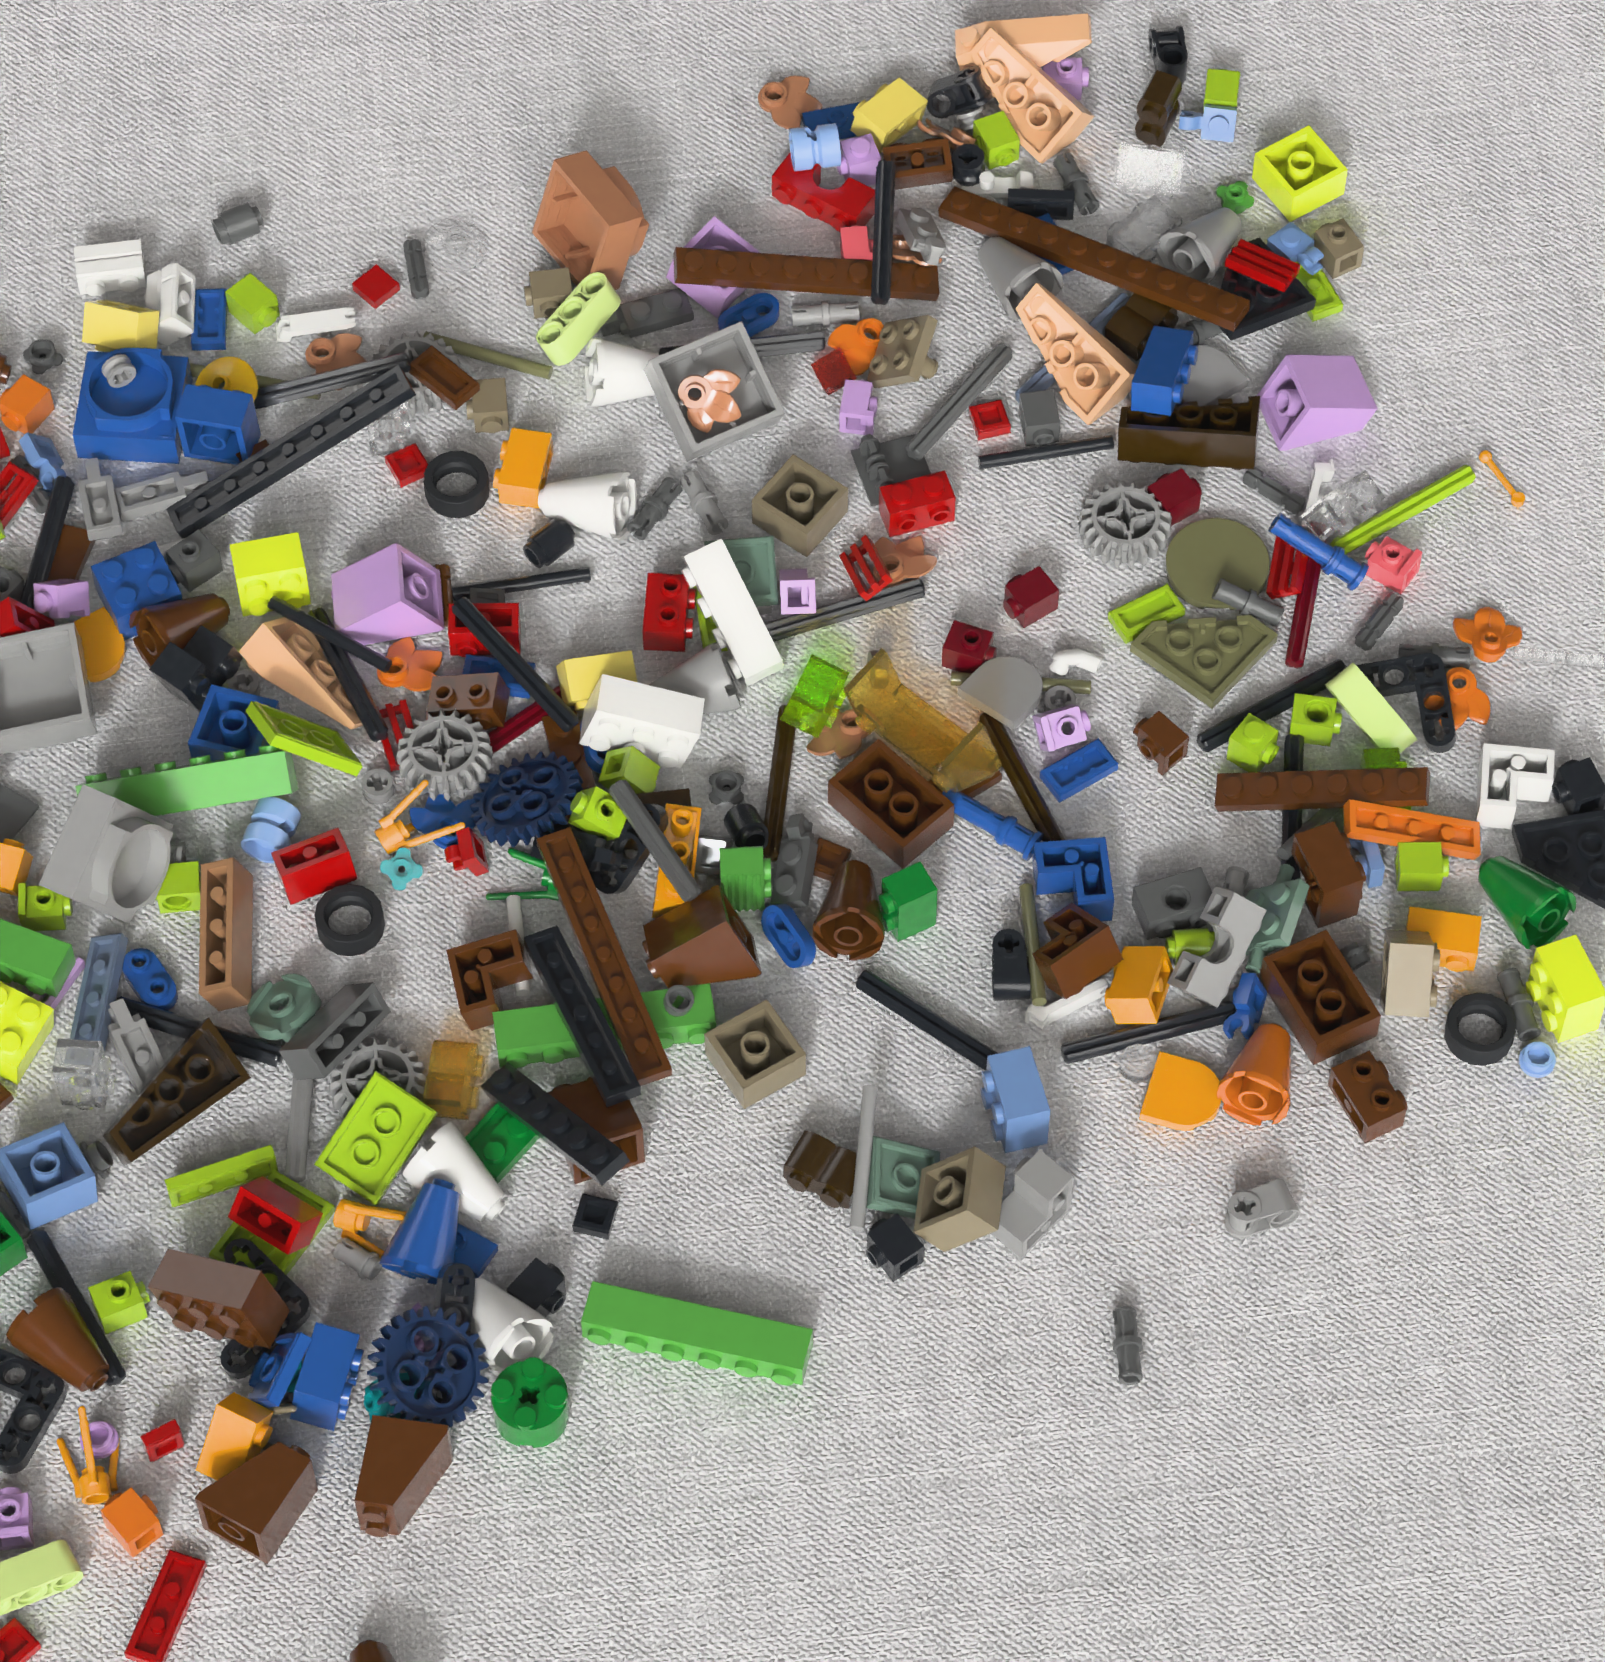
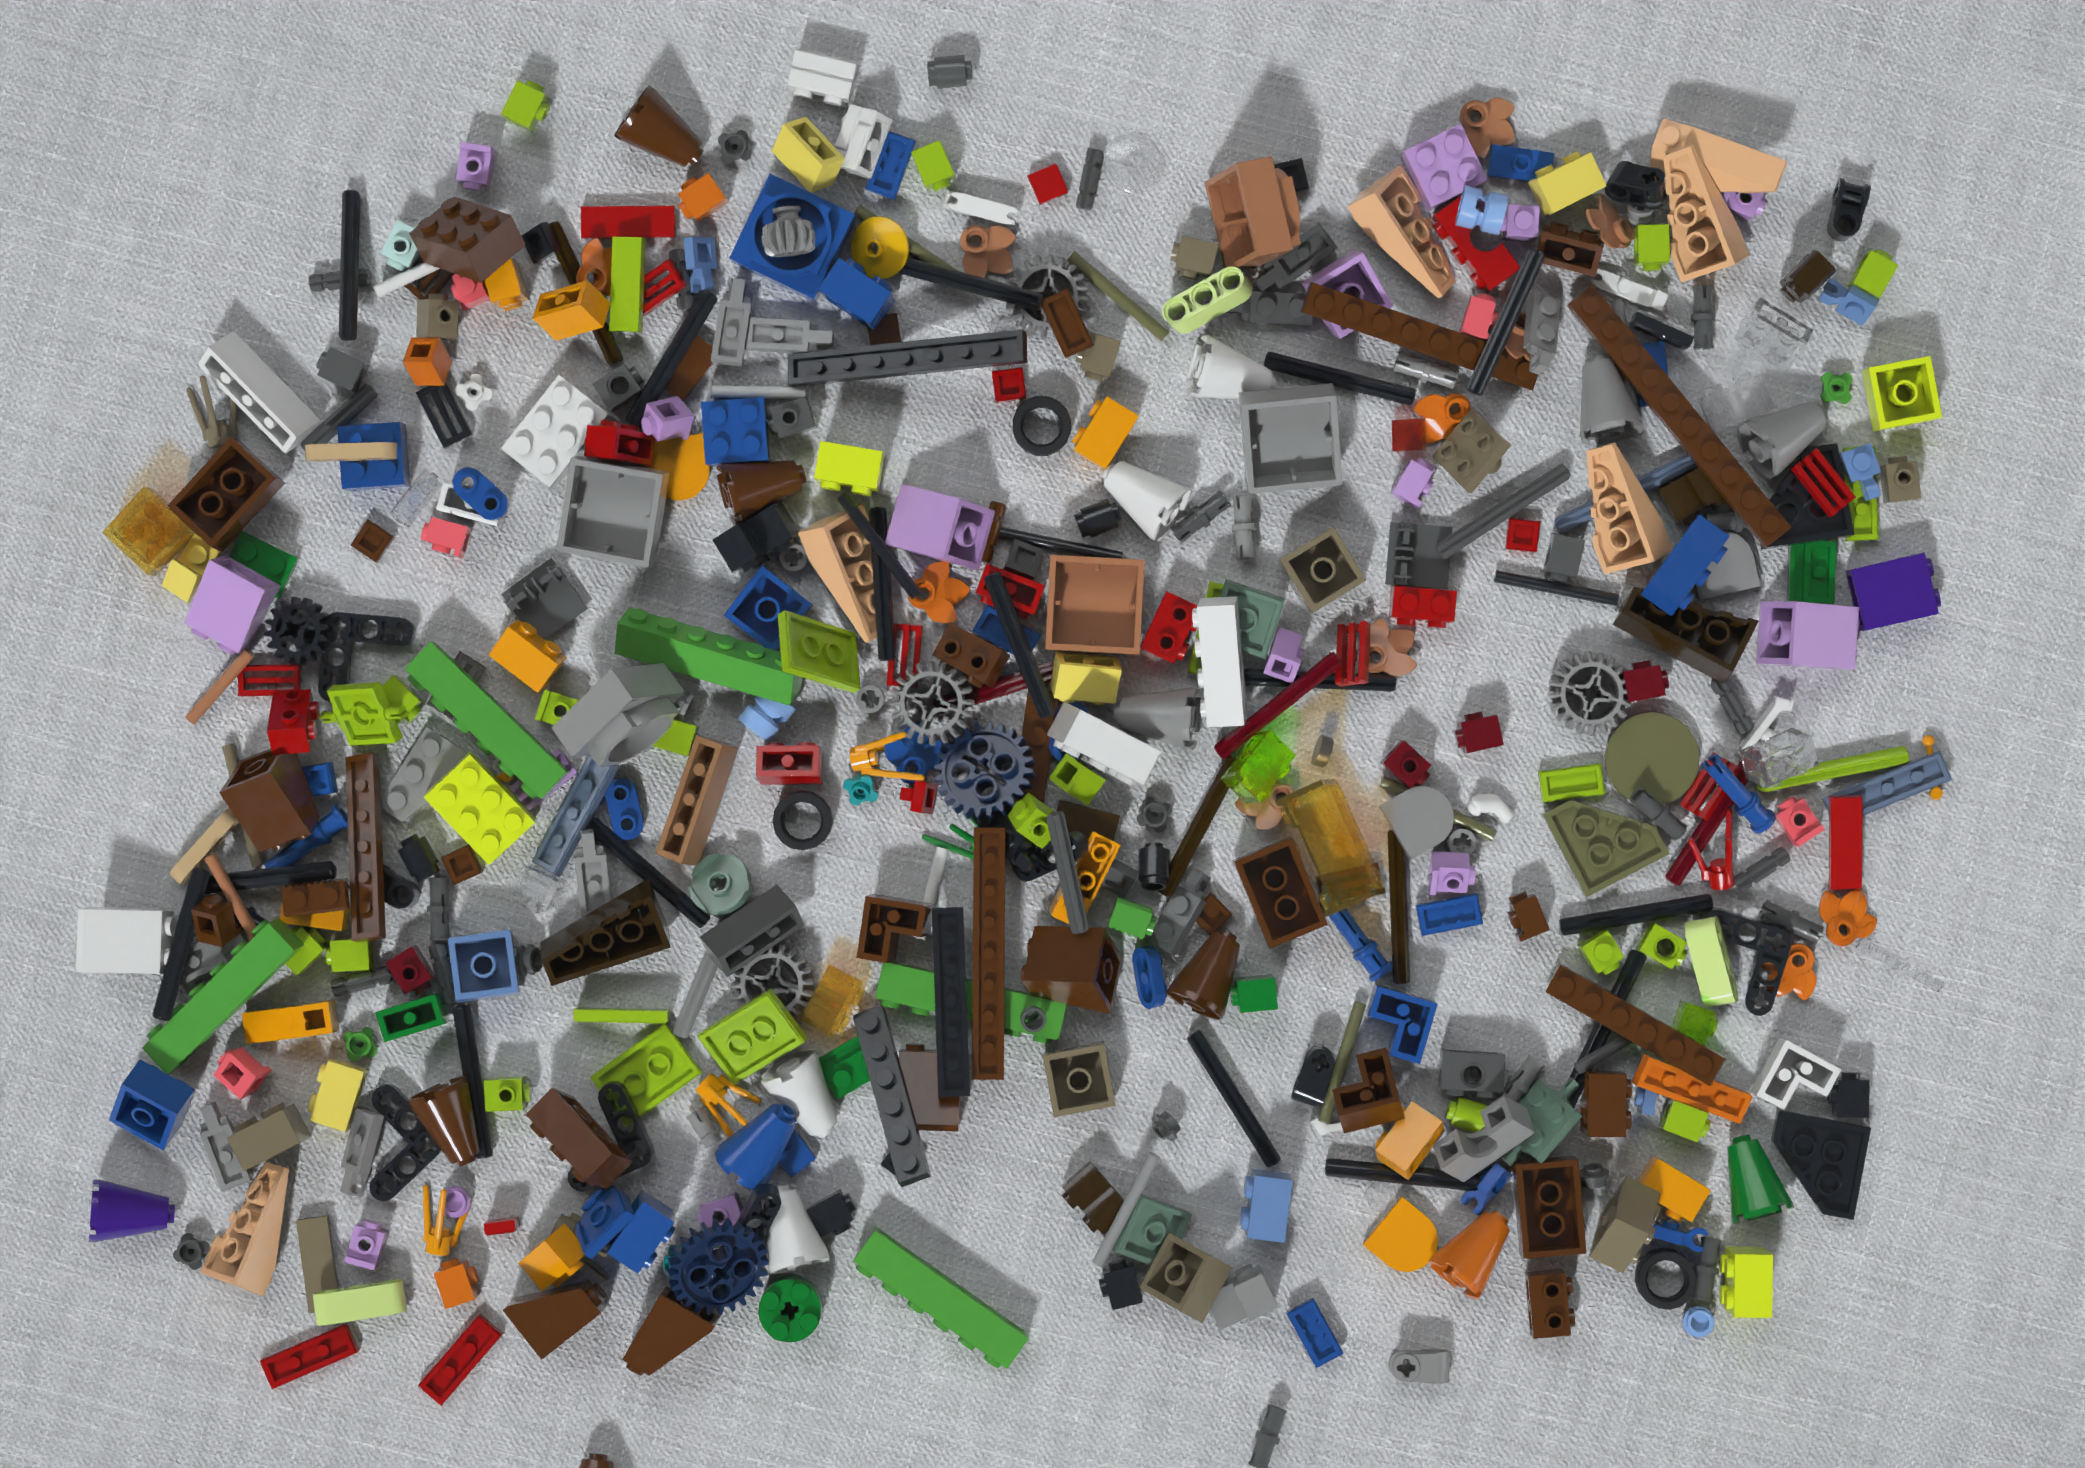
camera: 20 degrees right, 30 degrees up
(127, 382) = (788, 238): none -> light grey gear
(275, 1215) = (648, 1078): red brick -> none
(578, 604) = (1095, 604): none -> nougat container
(650, 264) = (1288, 267): none -> dark grey hinge
(714, 401) = (1282, 449): plate -> none
(729, 196) = (1394, 221): none -> light nougat wedge
(749, 311) = (1357, 351): blue plate -> none
(757, 141) = (1443, 167): none -> lavender brick
(810, 639) = (1278, 705): none -> dark red axle
(871, 1071) = (1165, 1126): none -> dark grey plate
(968, 174) = (1610, 270): black wheel -> none
(1129, 1220) = (1314, 1332): none -> blue plate
(1287, 338) = (1812, 572): none -> green plate
(1339, 633) = (1720, 870): none -> red plant
(1381, 337) = (1893, 591): none -> dark purple brick
(1450, 564) = (1845, 842): none -> red tile
(1465, 980) = (1670, 1232): none -> blue plate
(1466, 508) = (1898, 783): none -> sand blue tile

